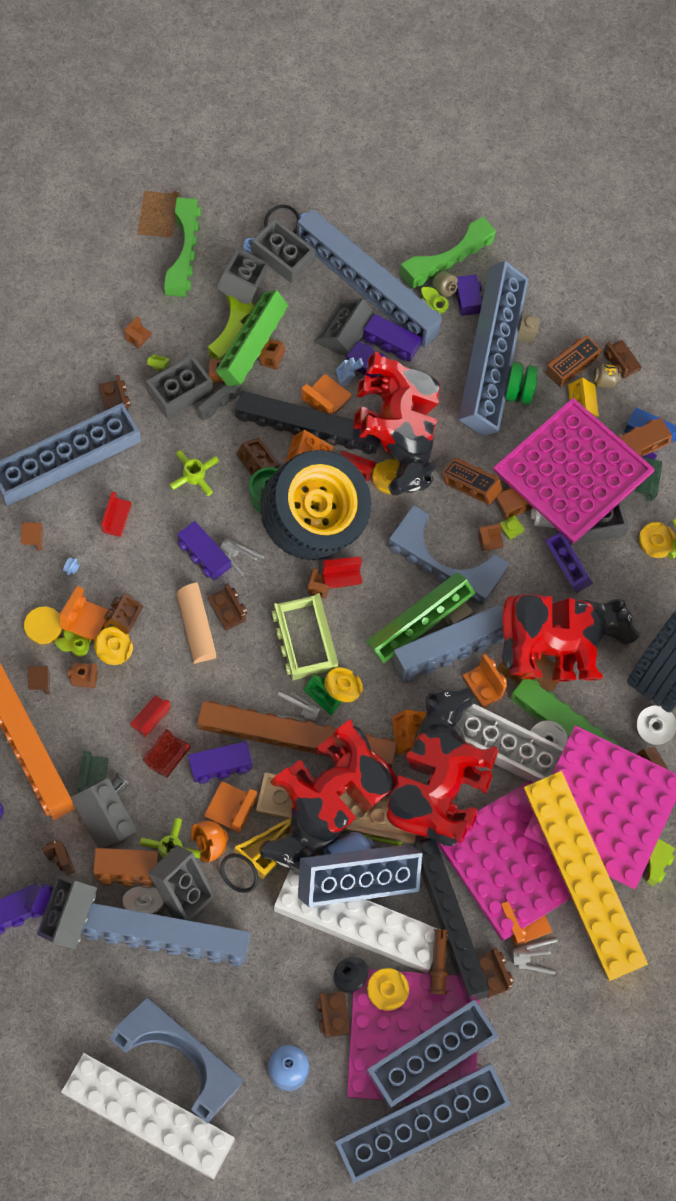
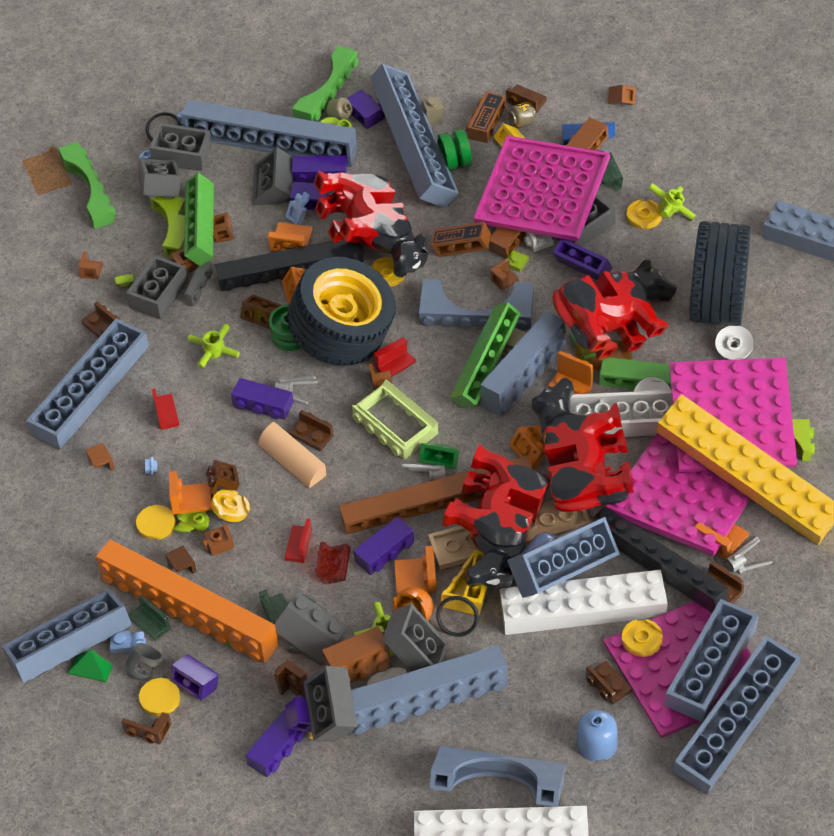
camera: 20 degrees left, 15 degrees down
(343, 684) = (451, 439): yellow tile -> none
(356, 977) = (605, 650): black piece -> none
(438, 973) = (676, 600): reddish brown pin -> none

